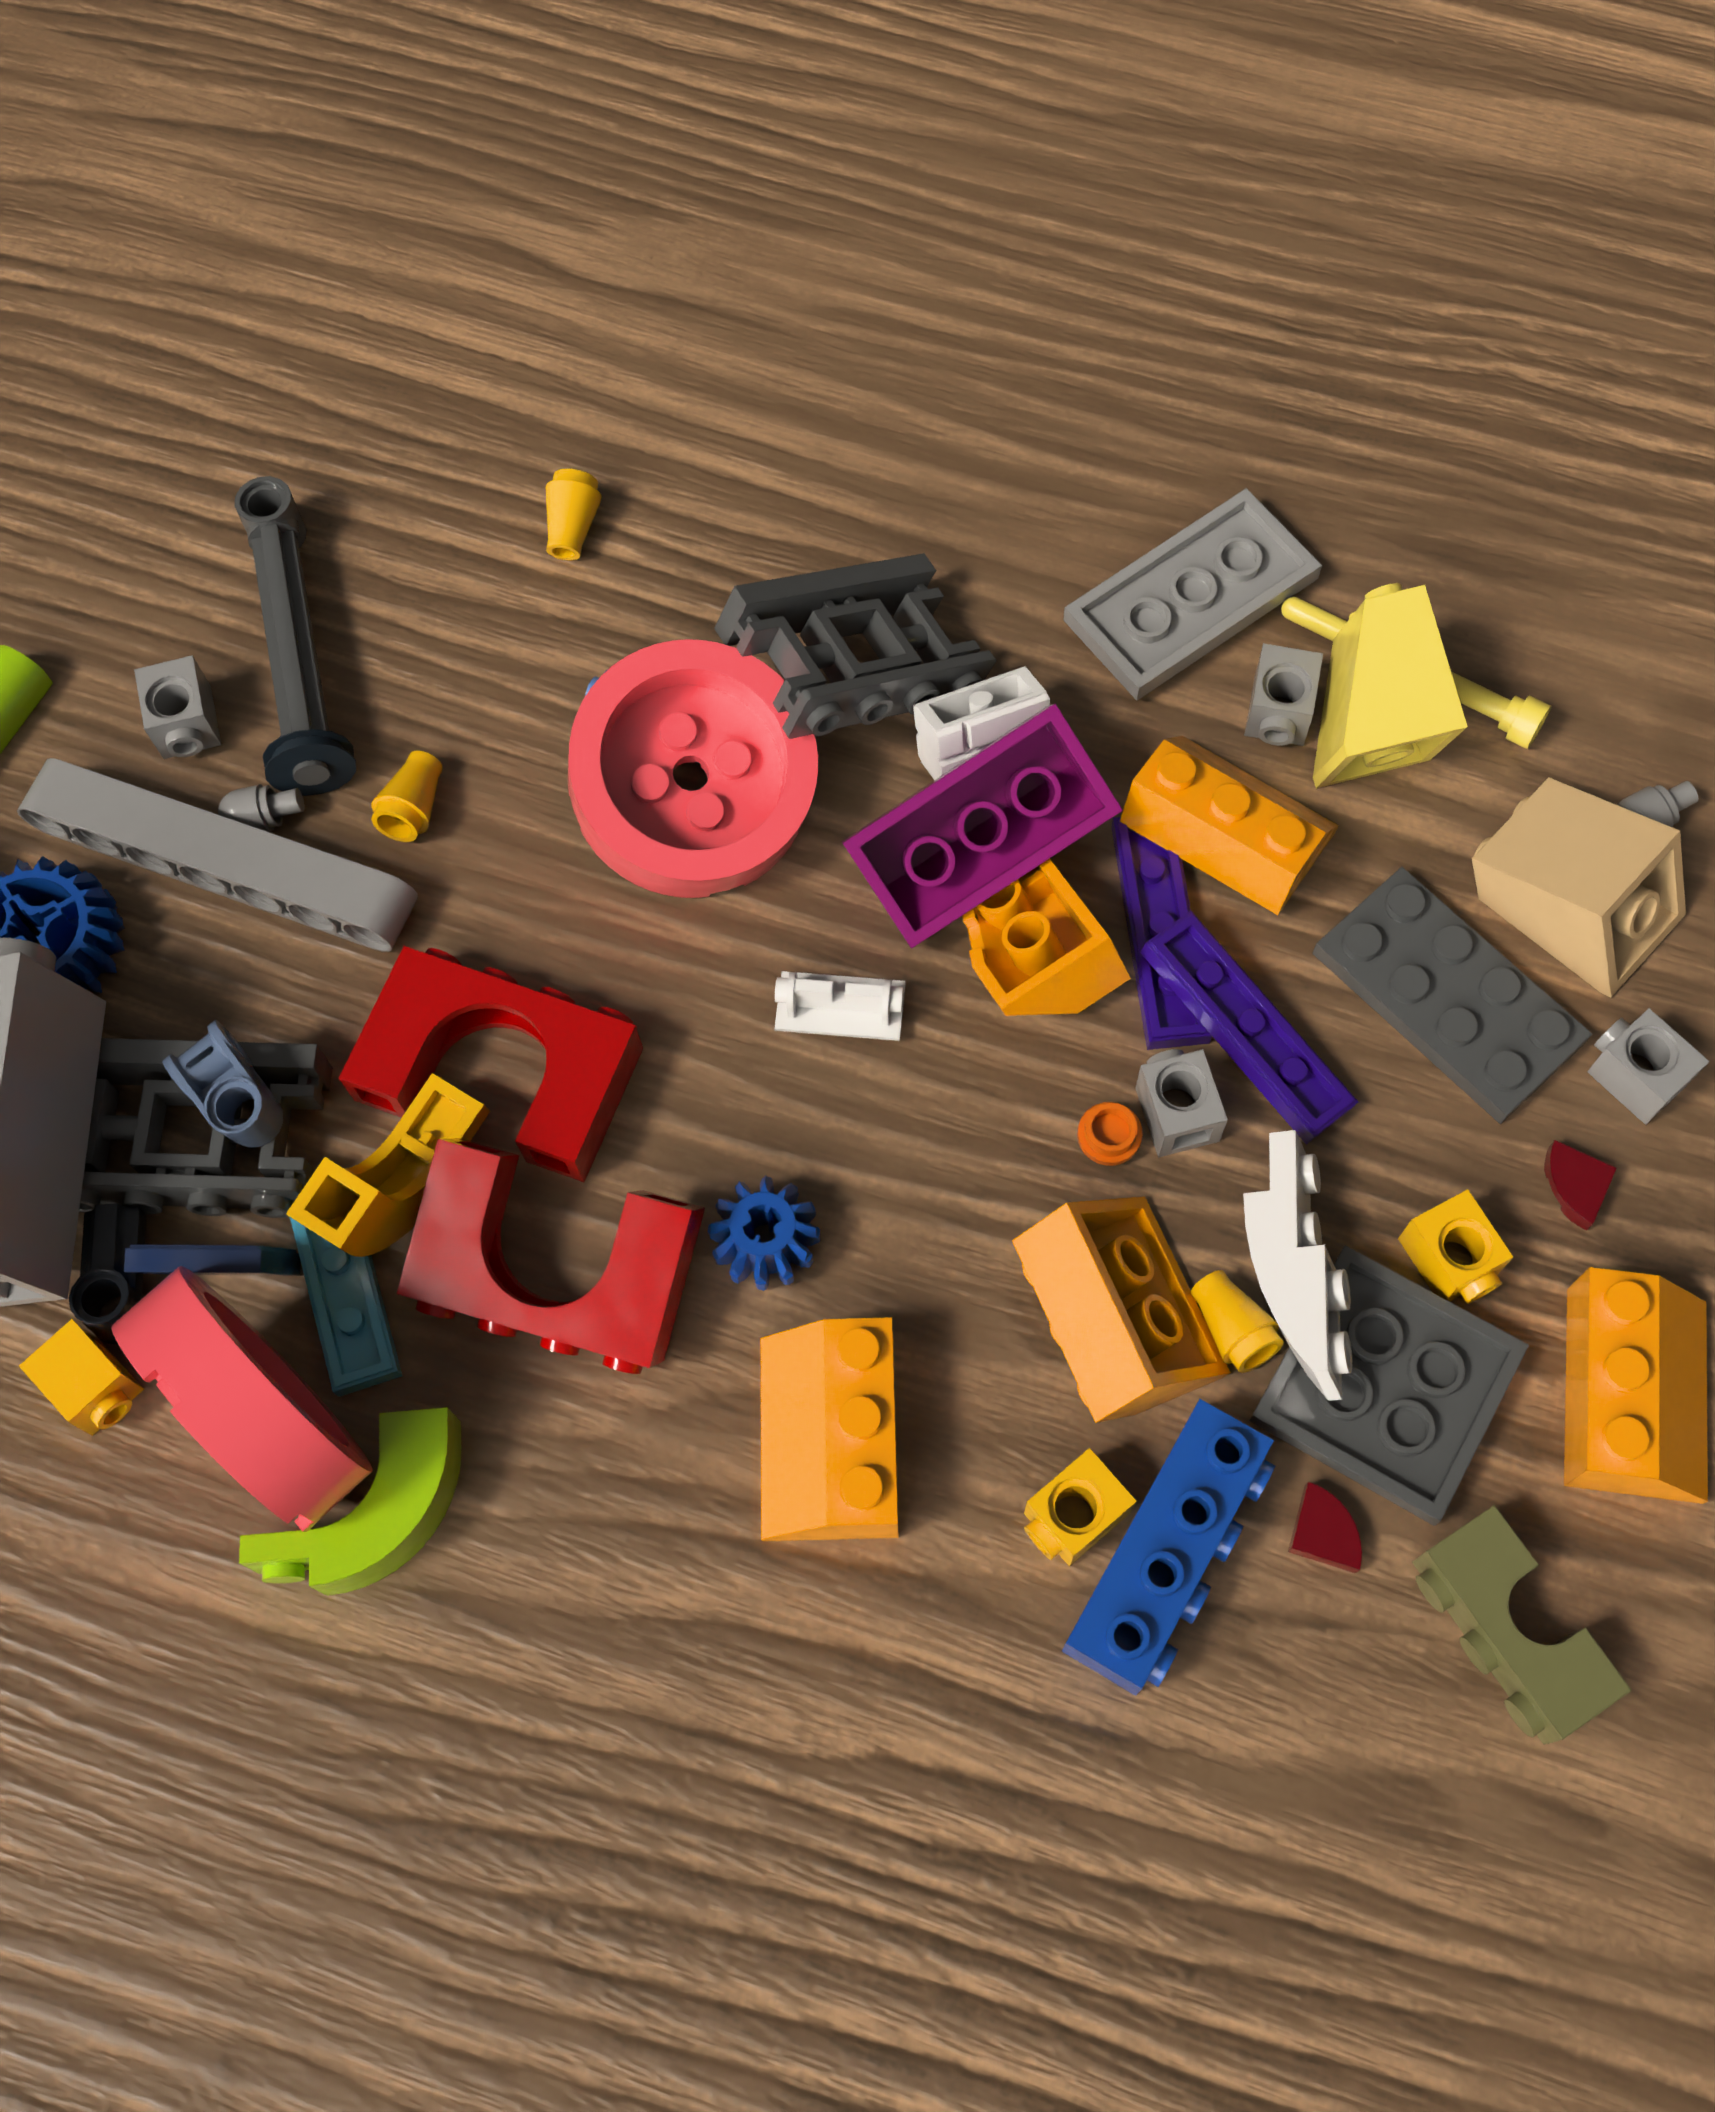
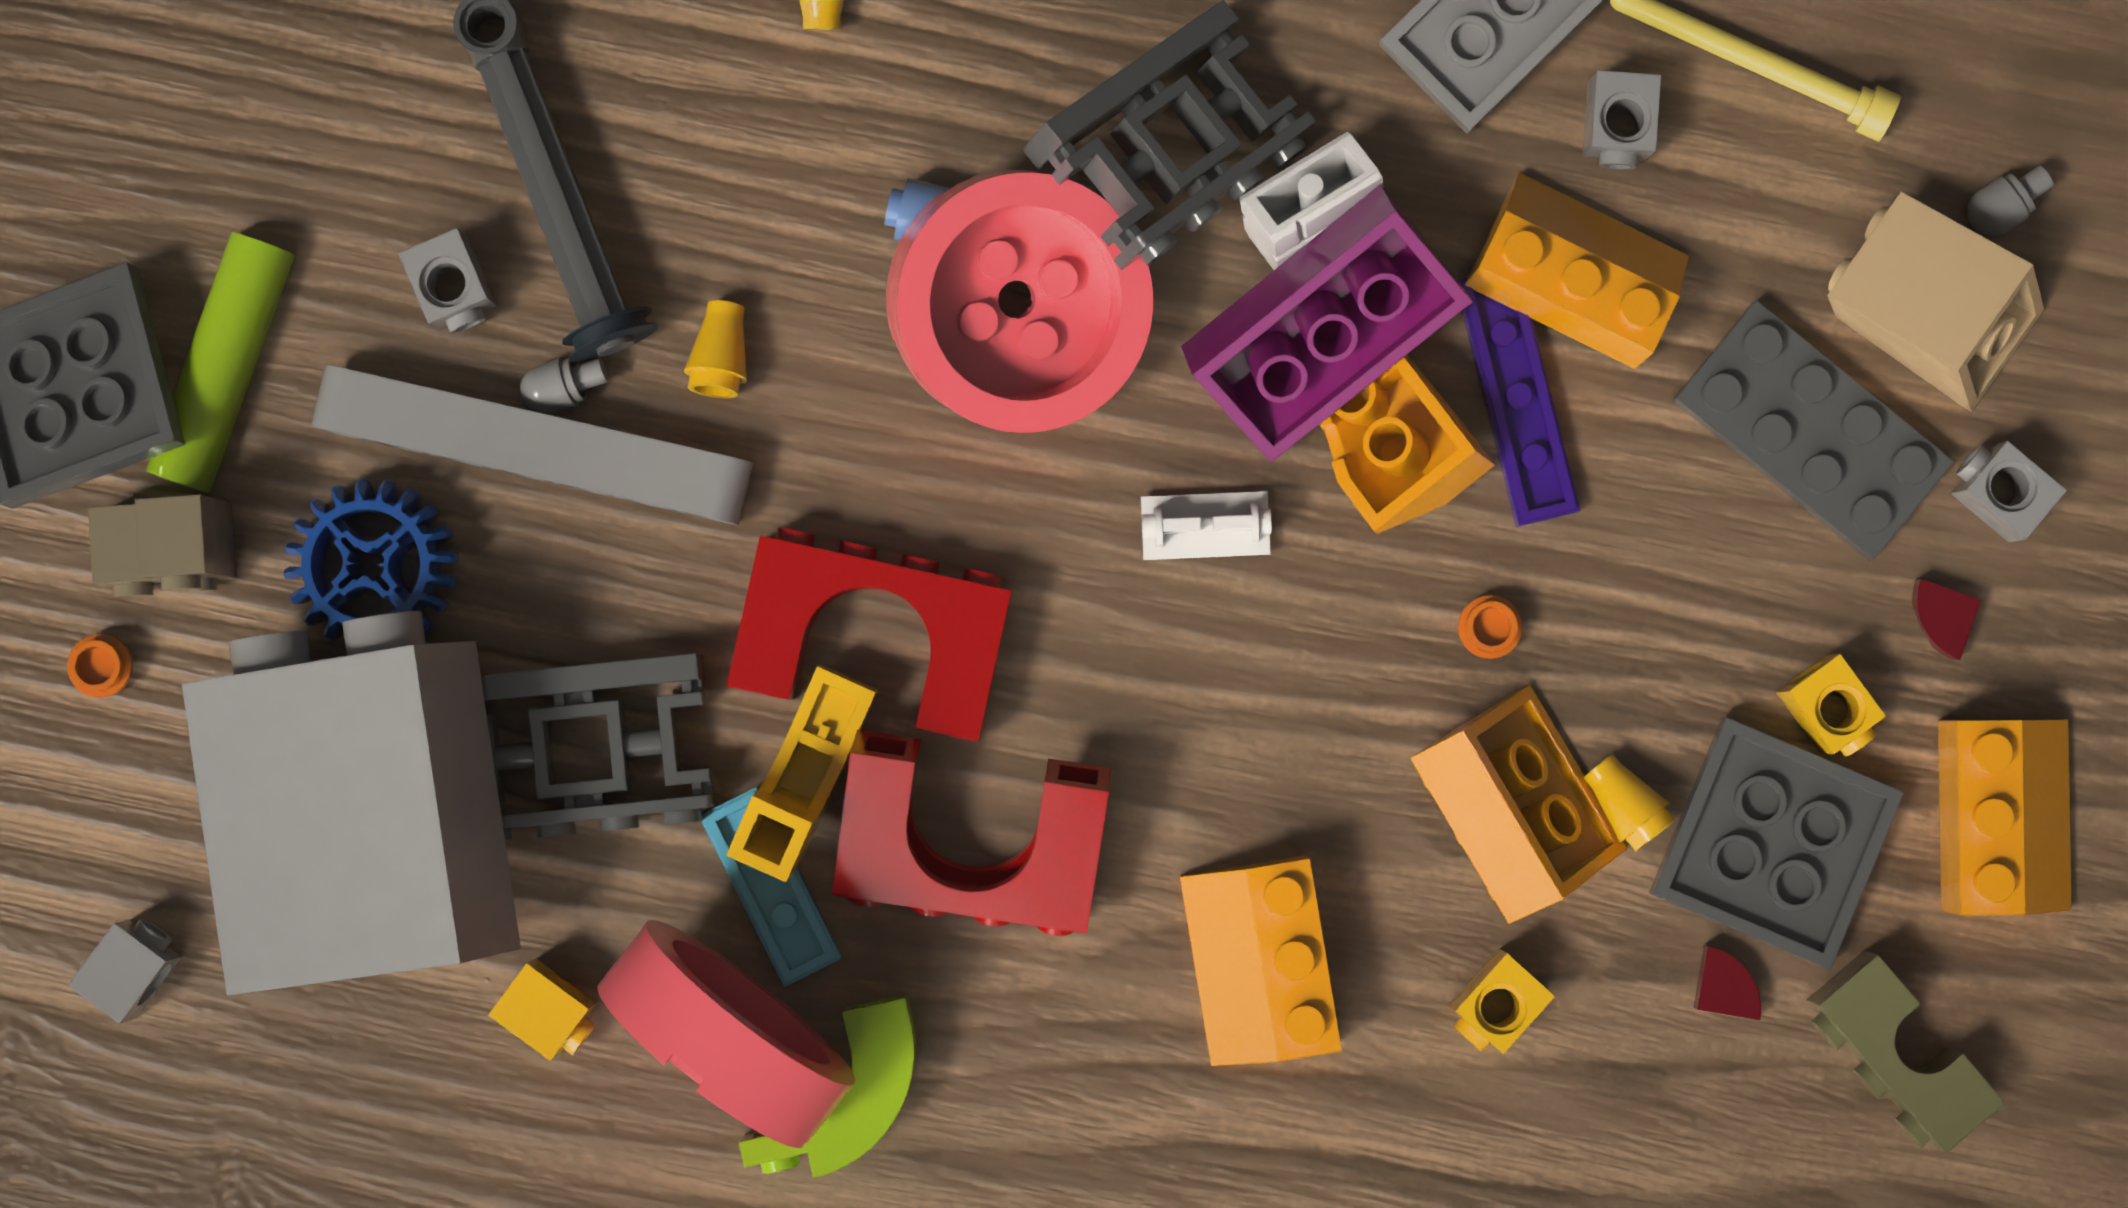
camera: 10 degrees left, 20 degrees up
(102, 1276) = (543, 894): black piece -> none
(212, 1260) = (650, 889): dark blue tile -> none
(219, 1079) = (617, 714): sand blue piece -> none
(781, 1214) = (1191, 781): blue gear -> none
(1168, 1548) = (1587, 1026): blue brick -> none
(1174, 1127) = (1582, 600): light grey brick -> none
(1248, 1027) = (1615, 499): dark purple tile -> none
(1296, 1267) = (1686, 774): white slope -> none
(1386, 689) = (1726, 121): light yellow slope -> none

